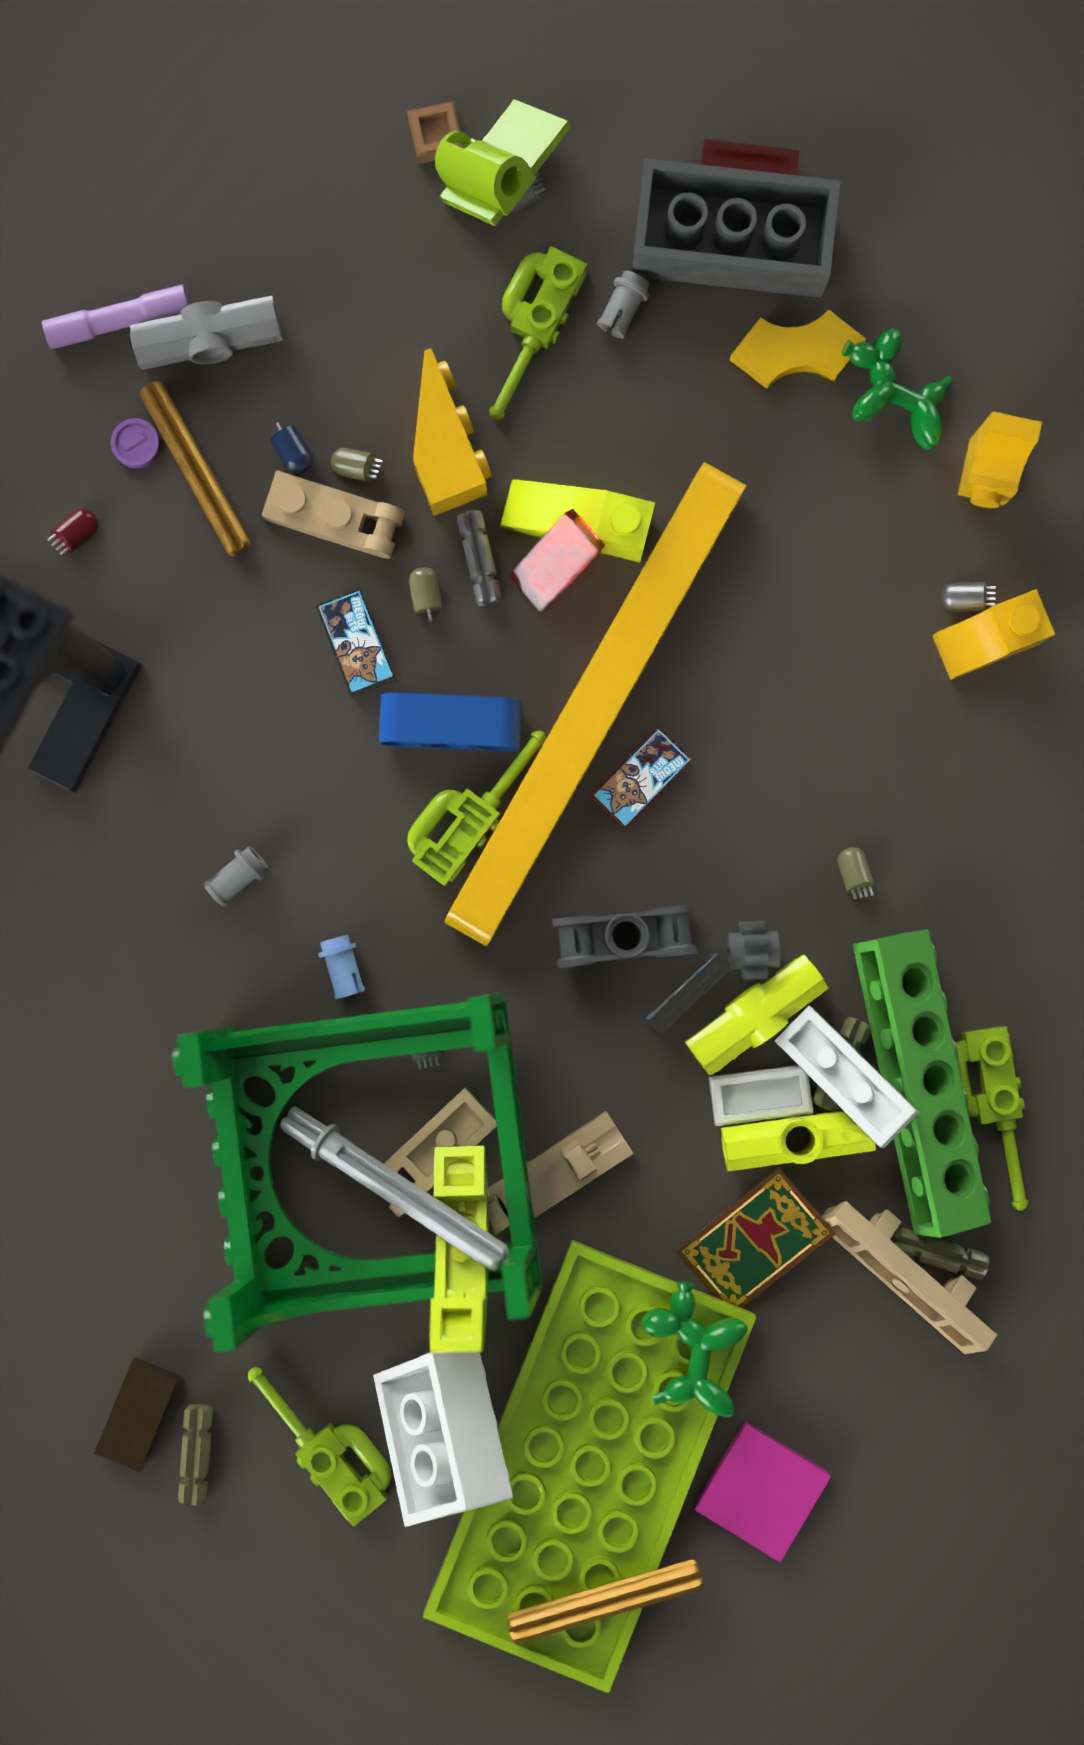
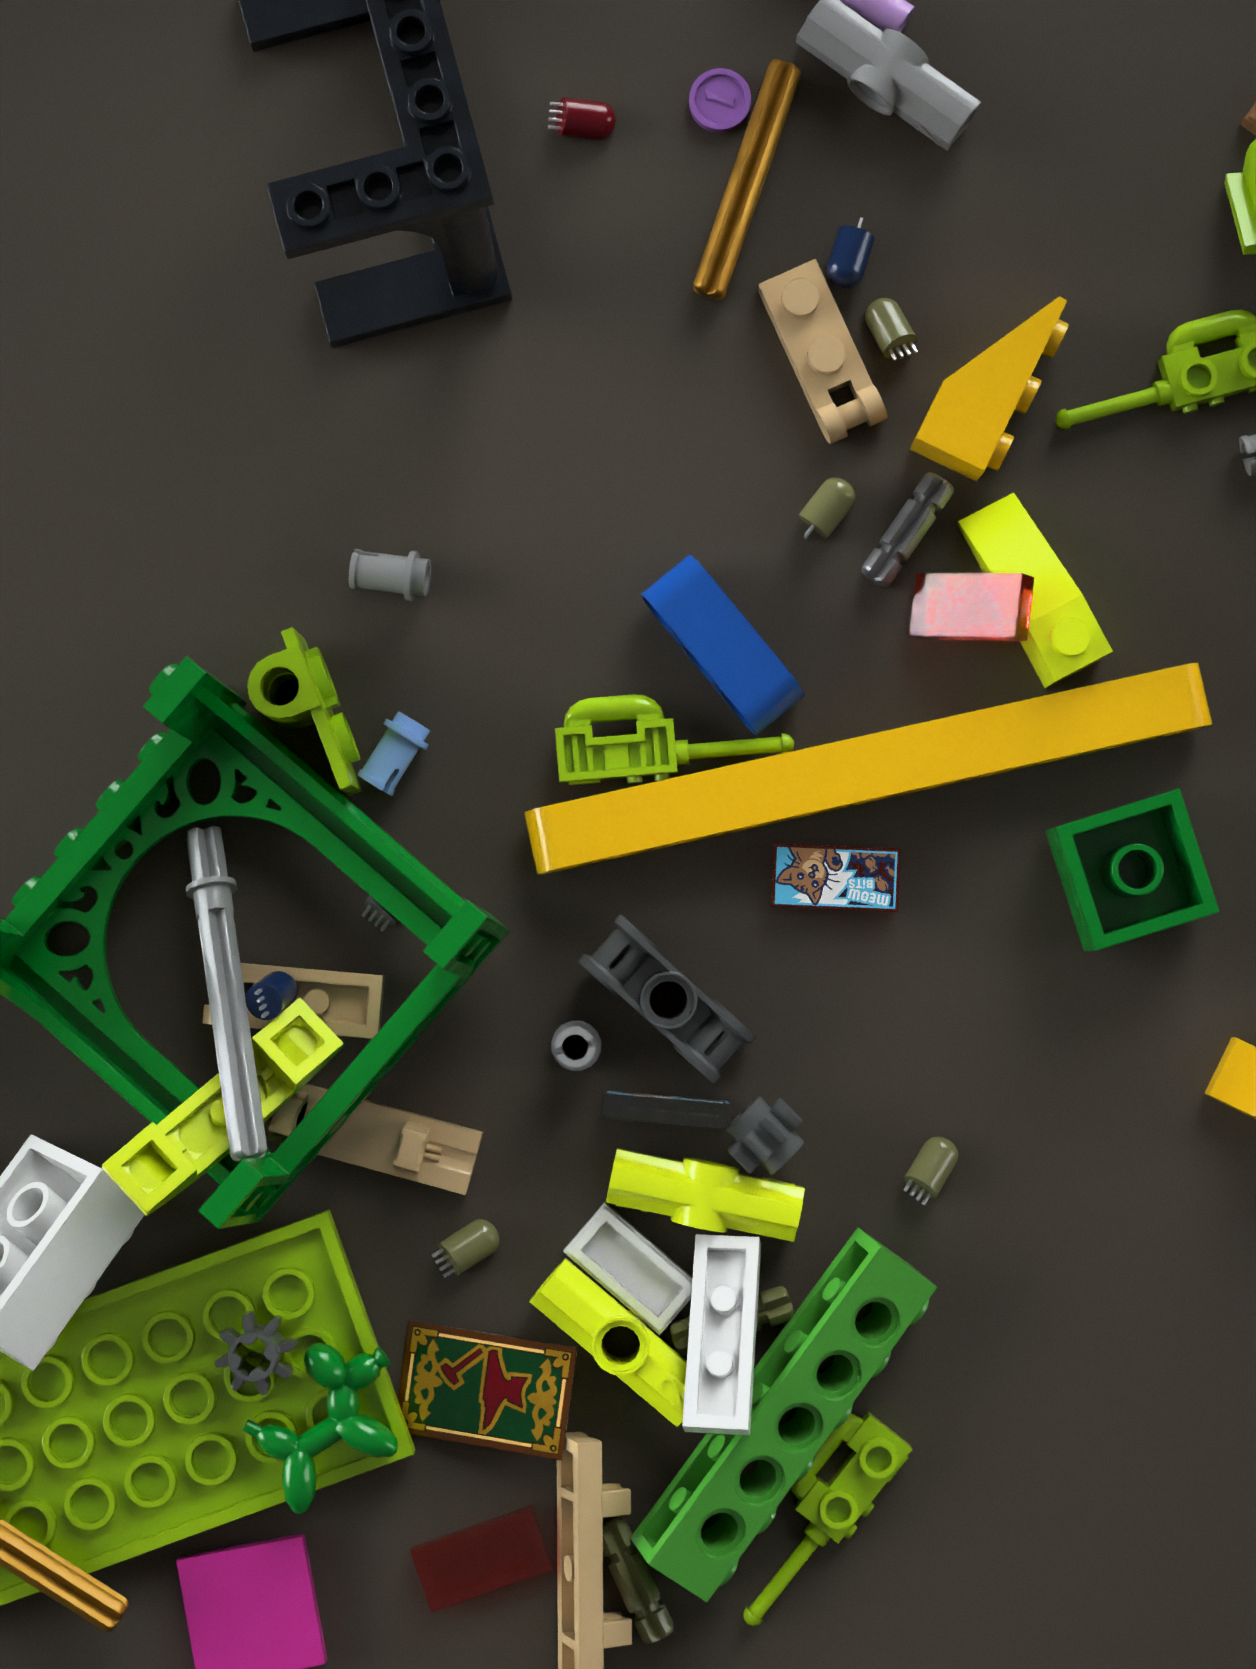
camera: 55 degrees right, 0 degrees up
(271, 990) = (311, 705): none -> lime piece
(356, 642) = (718, 485): tile -> none
(418, 1163) = (271, 995): none -> dark blue piece
(595, 1003) = (576, 1028): none -> light grey pin
(608, 1366) = (238, 1353): none -> dark grey gear
(664, 1178) = (468, 1246): none -> olive piece
(789, 605) = (1132, 871): none -> green brick
(849, 1330) = (481, 1558): none -> clear red tile

